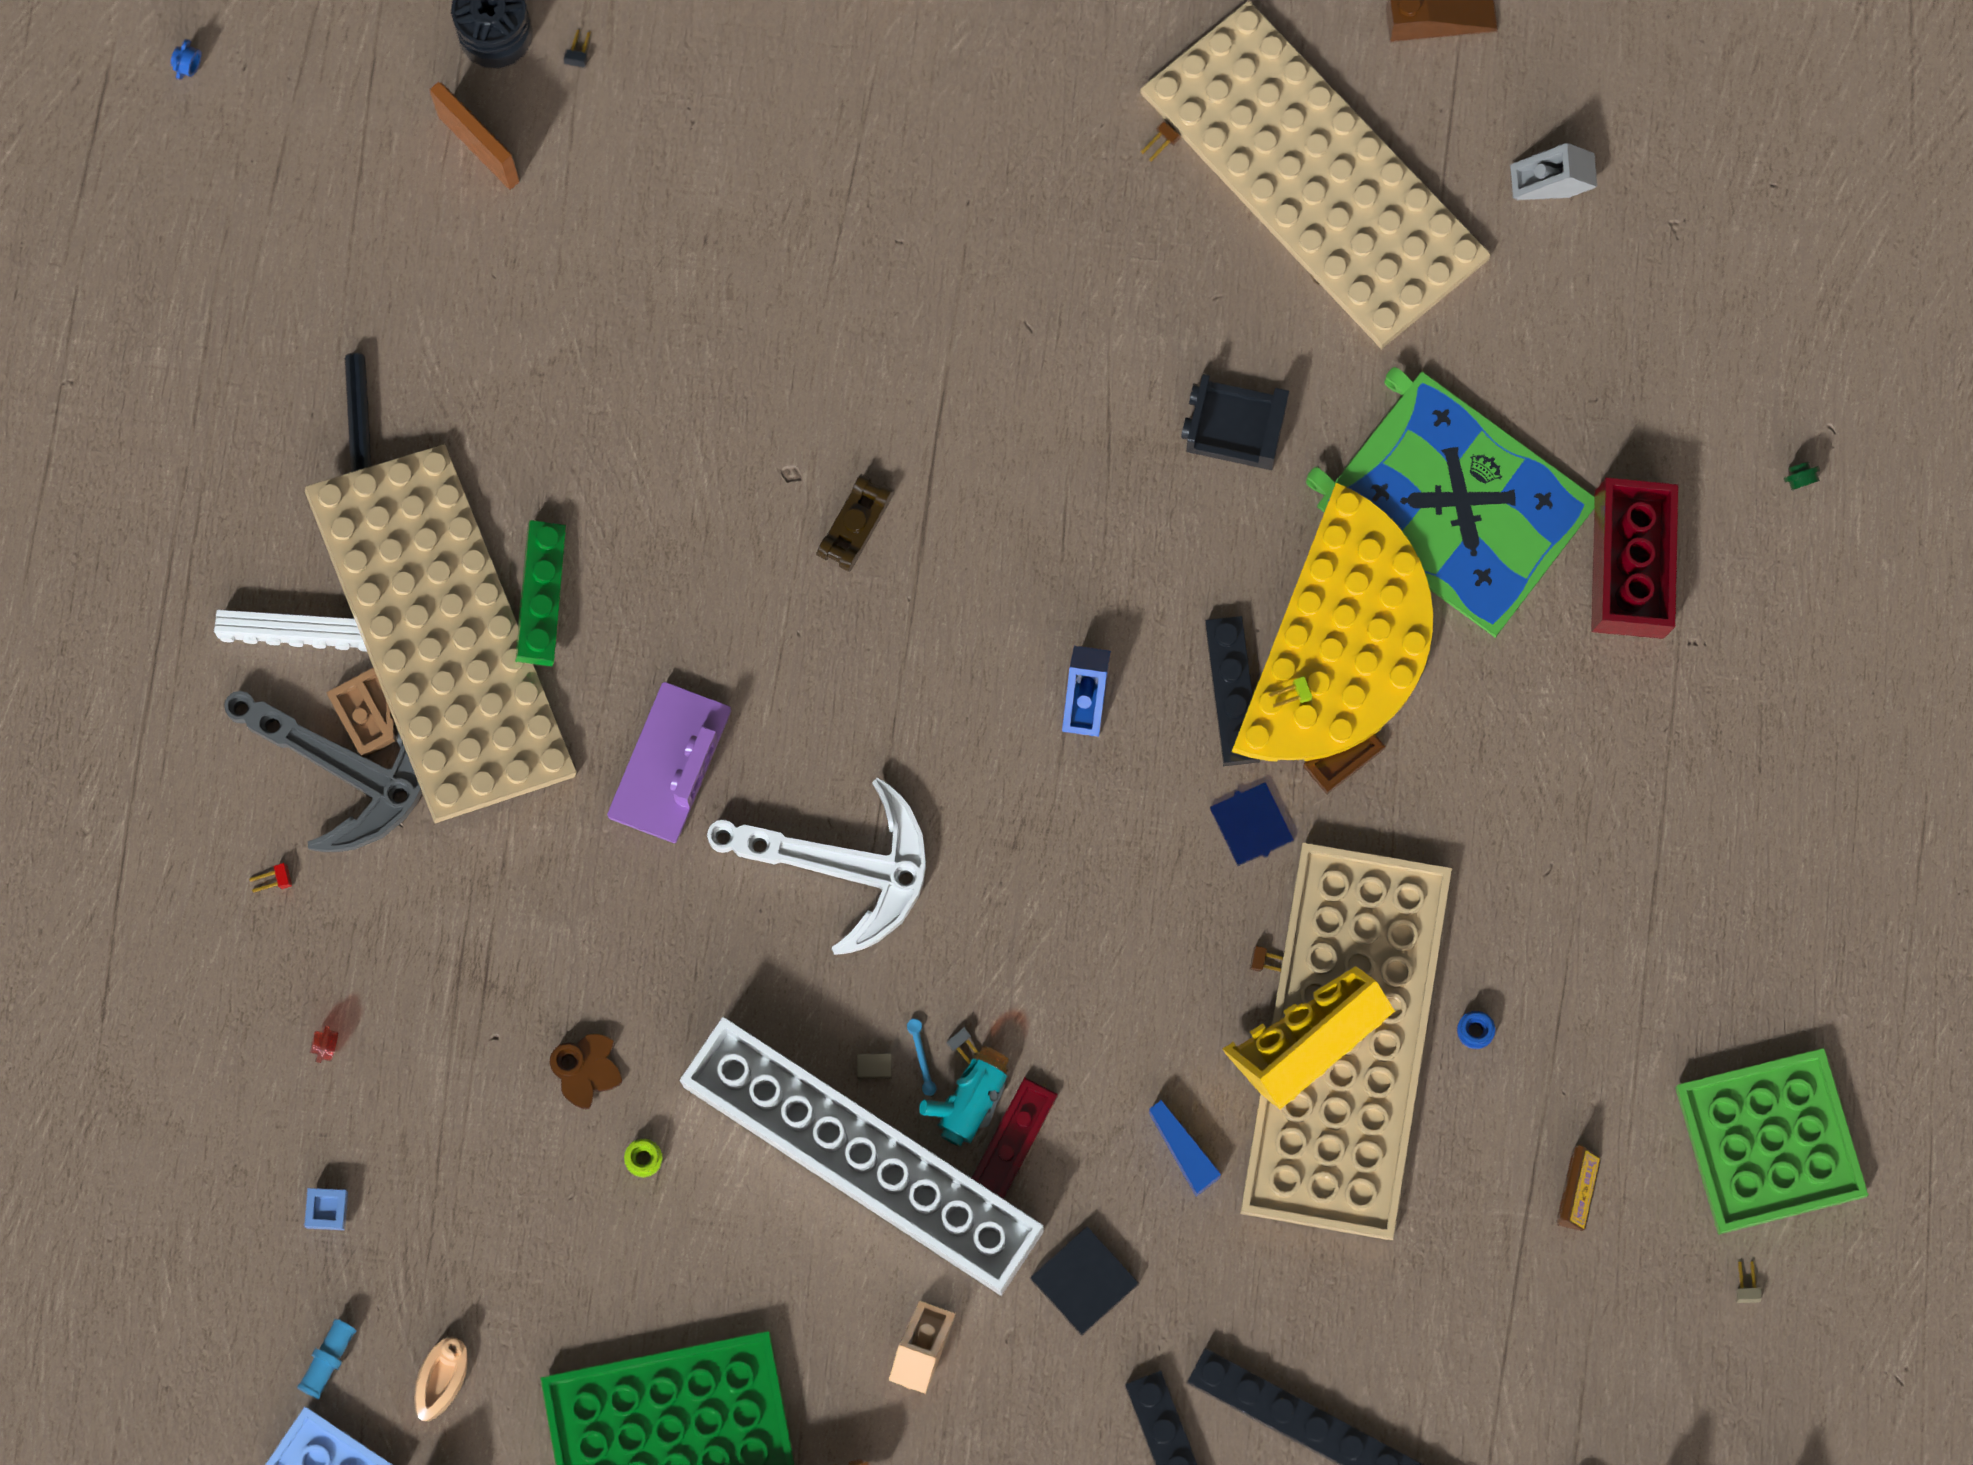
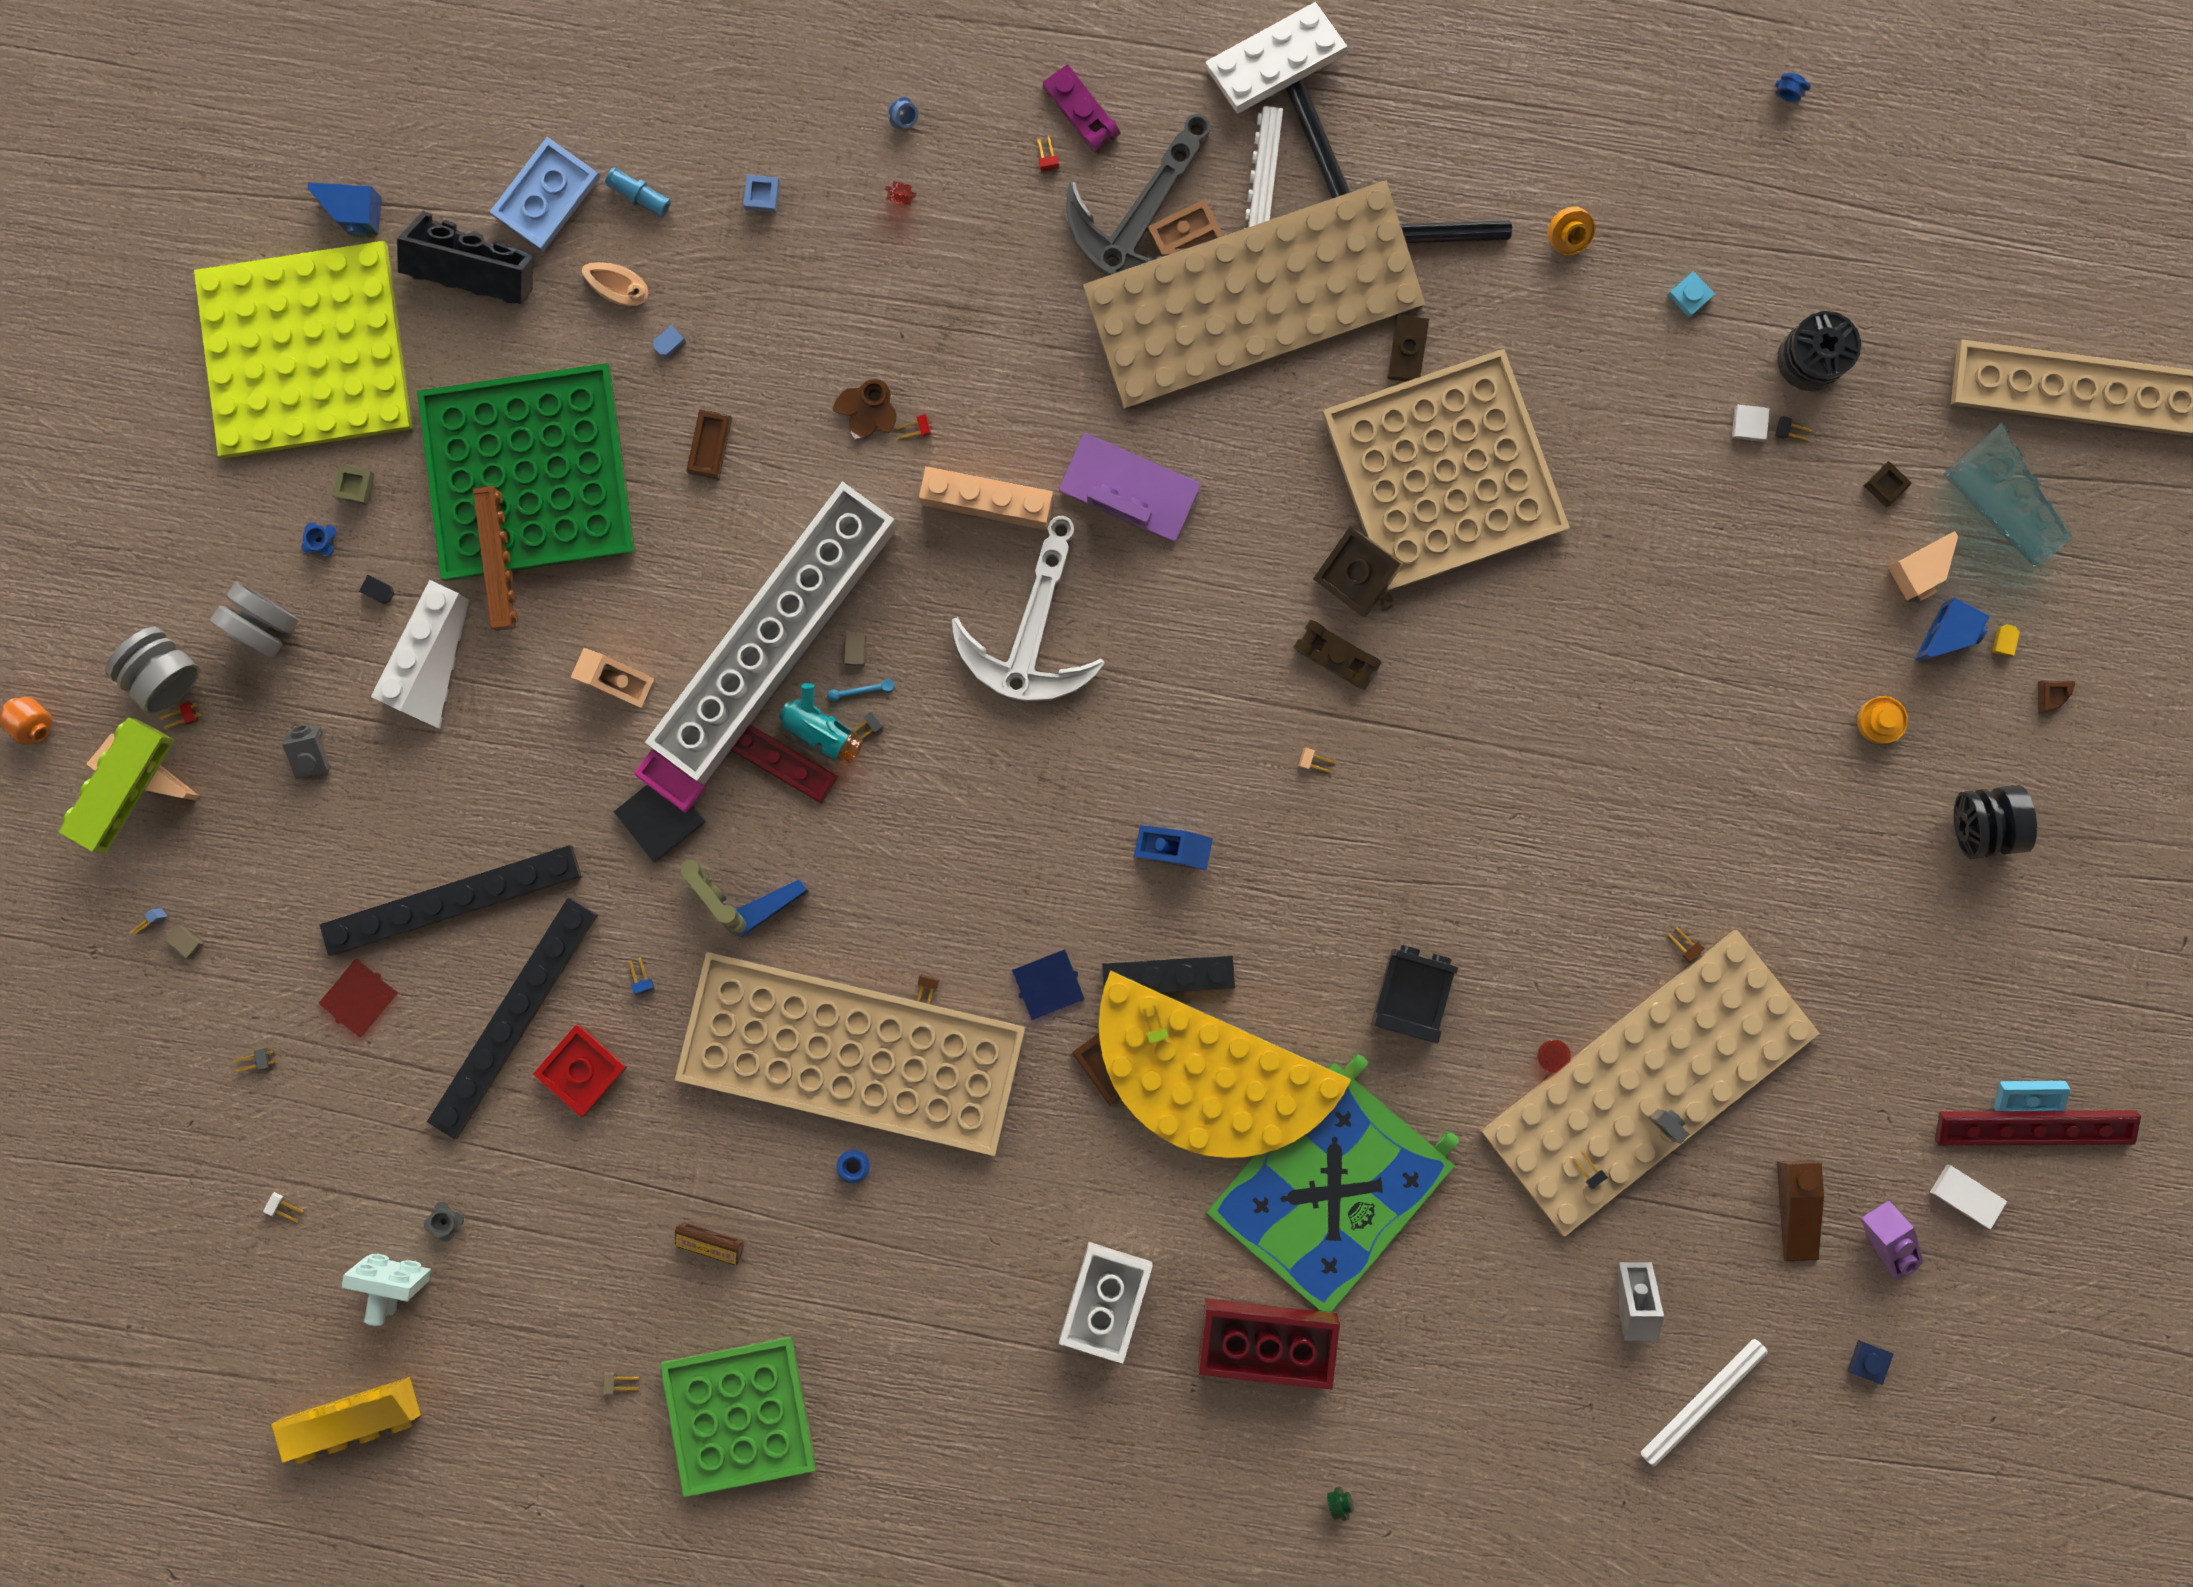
camera: 90 degrees right, 10 degrees up
(154, 621) = (1276, 57): none -> white plate
(216, 842) = (1080, 108): none -> magenta plate
(225, 1047) = (909, 114): none -> medium blue plate
(251, 571) = (1317, 139): none -> black axle
(357, 287) = (1571, 231): none -> light orange plate
(426, 160) = (1691, 294): none -> medium azure plate
(474, 135) = (1709, 332): dark orange tile -> none
(496, 461) = (1408, 347): none -> dark brown plate
(510, 1311) = (668, 342): none -> medium blue piece
(540, 593) = (1284, 381): green plate -> none
(572, 93) = (1750, 423): none -> white tile
(601, 1003) = (924, 427): none -> red piece
(633, 1254) = (709, 444): none -> reddish brown tile
(637, 414) = (1446, 468): none -> tan plate
(640, 1146) = (784, 445): lime plate -> none
(690, 921) = (986, 498): none -> light nougat brick
(760, 501) = (1358, 571): none -> dark brown plate
(975, 551) = (1306, 759): none -> light nougat piece
(1042, 1268) = (669, 781): none -> dark pink tile
(1178, 1204) = (712, 897): none -> olive plate
(1285, 1287) = (642, 986): none -> blue piece
(1292, 273) = (1553, 1055): none -> clear red plate
(1311, 1036) = (846, 1020): yellow wedge -> none
(1360, 146) = (1670, 1124): none -> dark grey plate
(1389, 1352) = (580, 1070): none -> red plate
(1425, 221) = (1595, 1180): none -> piece
(1605, 735) = (1105, 1302): none -> white brick
(1656, 106) = (1704, 1402): none -> white axle

